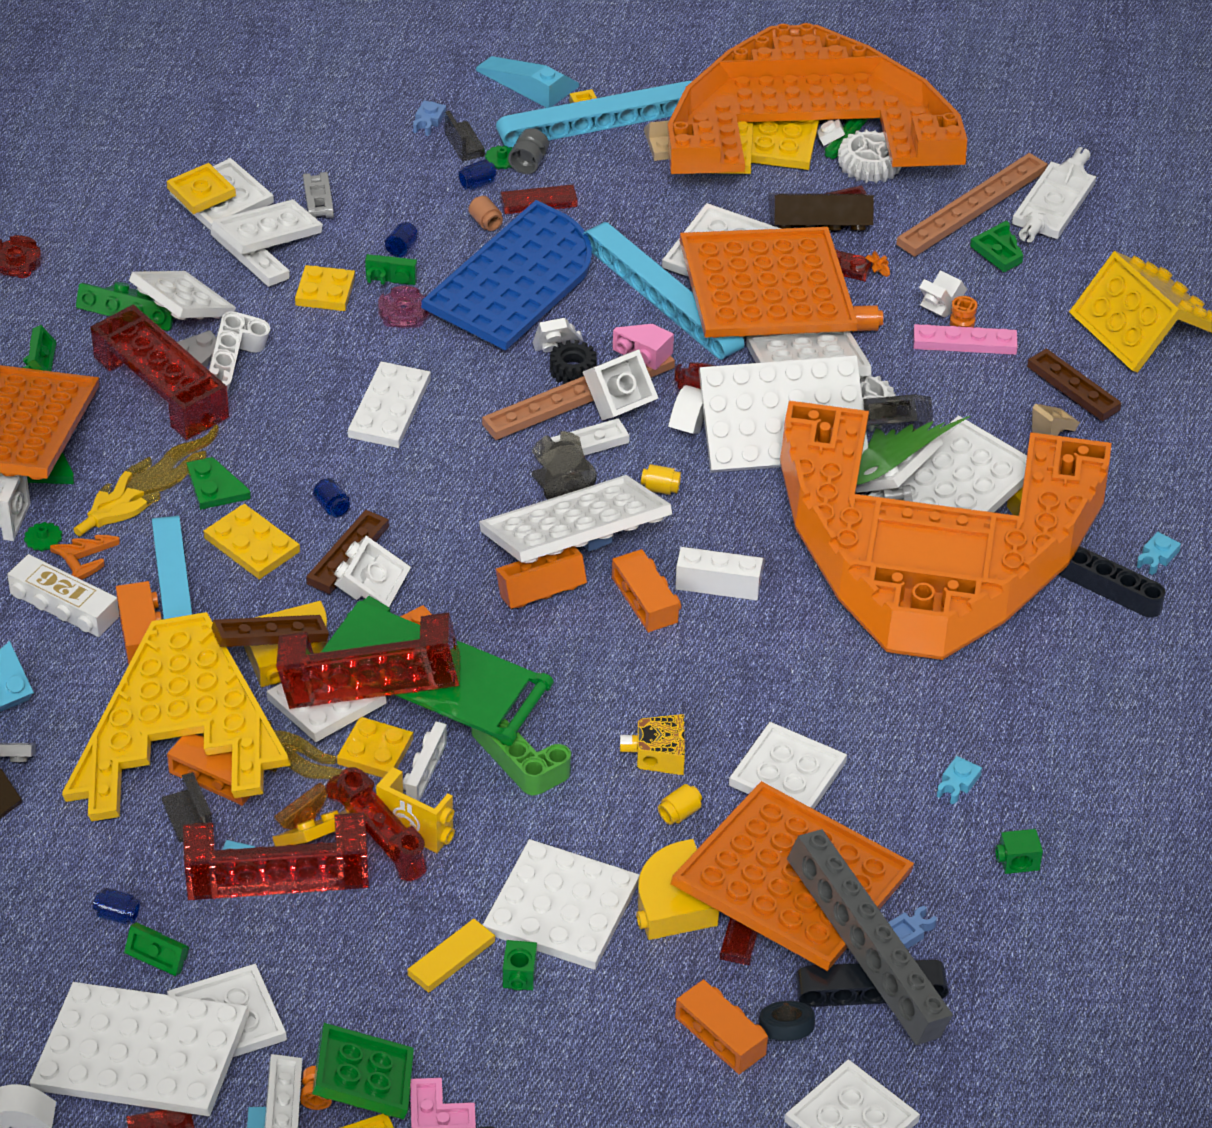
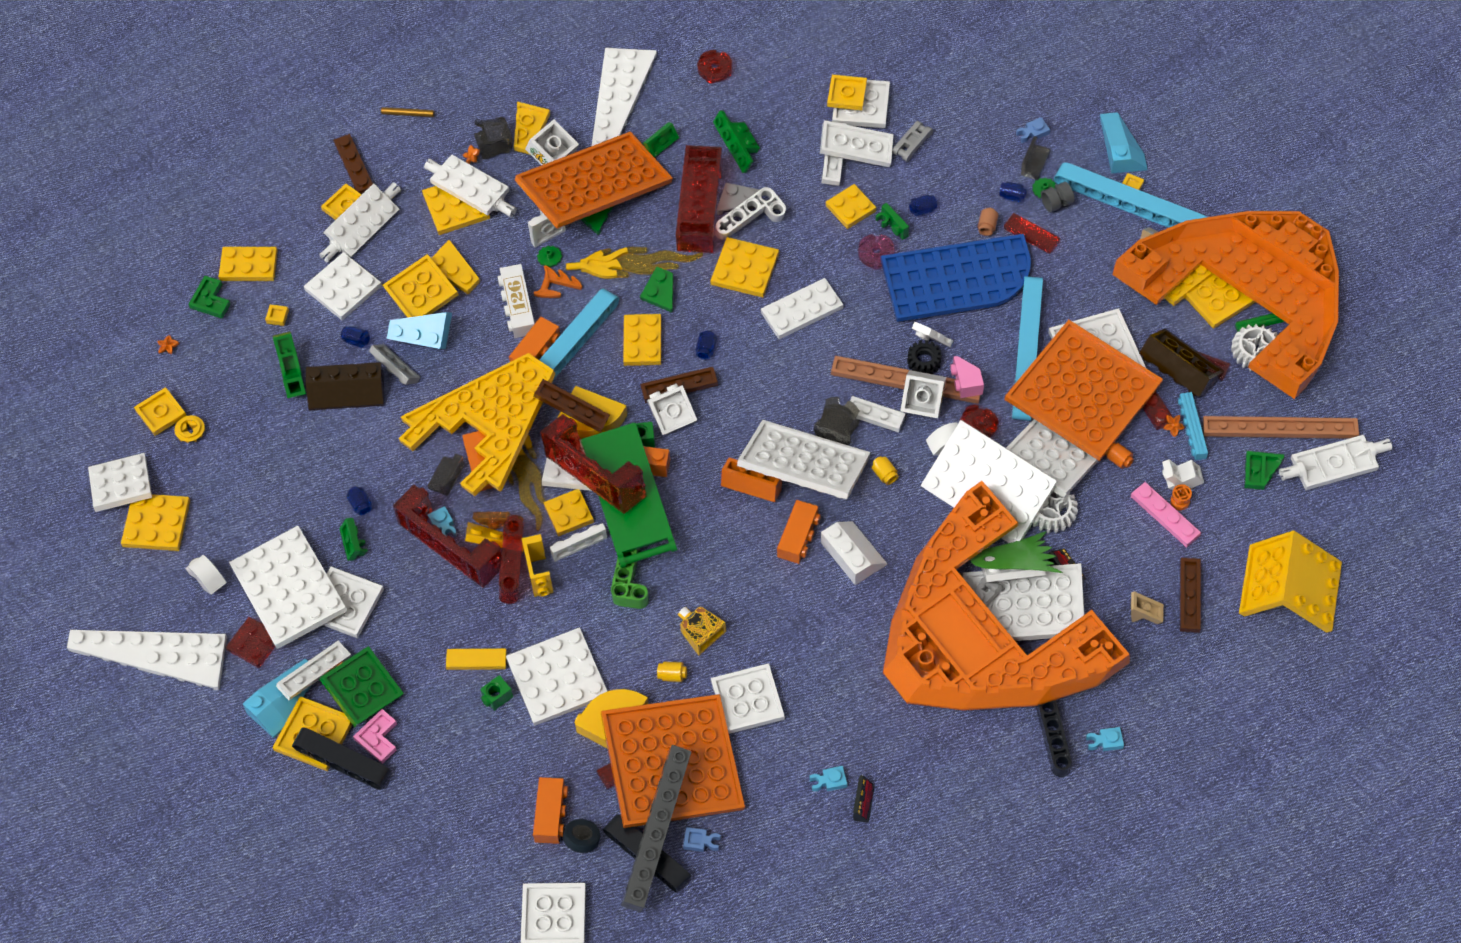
camera: 50 degrees right, 15 degrees up
(181, 294) = (763, 156): white plate -> none
(280, 407) = (744, 267): none -> yellow plate
(830, 131) = (1251, 313): white plate -> none
(896, 253) = (1193, 426): none -> medium azure piece
(899, 410) = (1055, 533): clear smoke slope -> none
(1012, 771) = (863, 800): none -> slope
(1019, 851) = (805, 848): green brick -> none

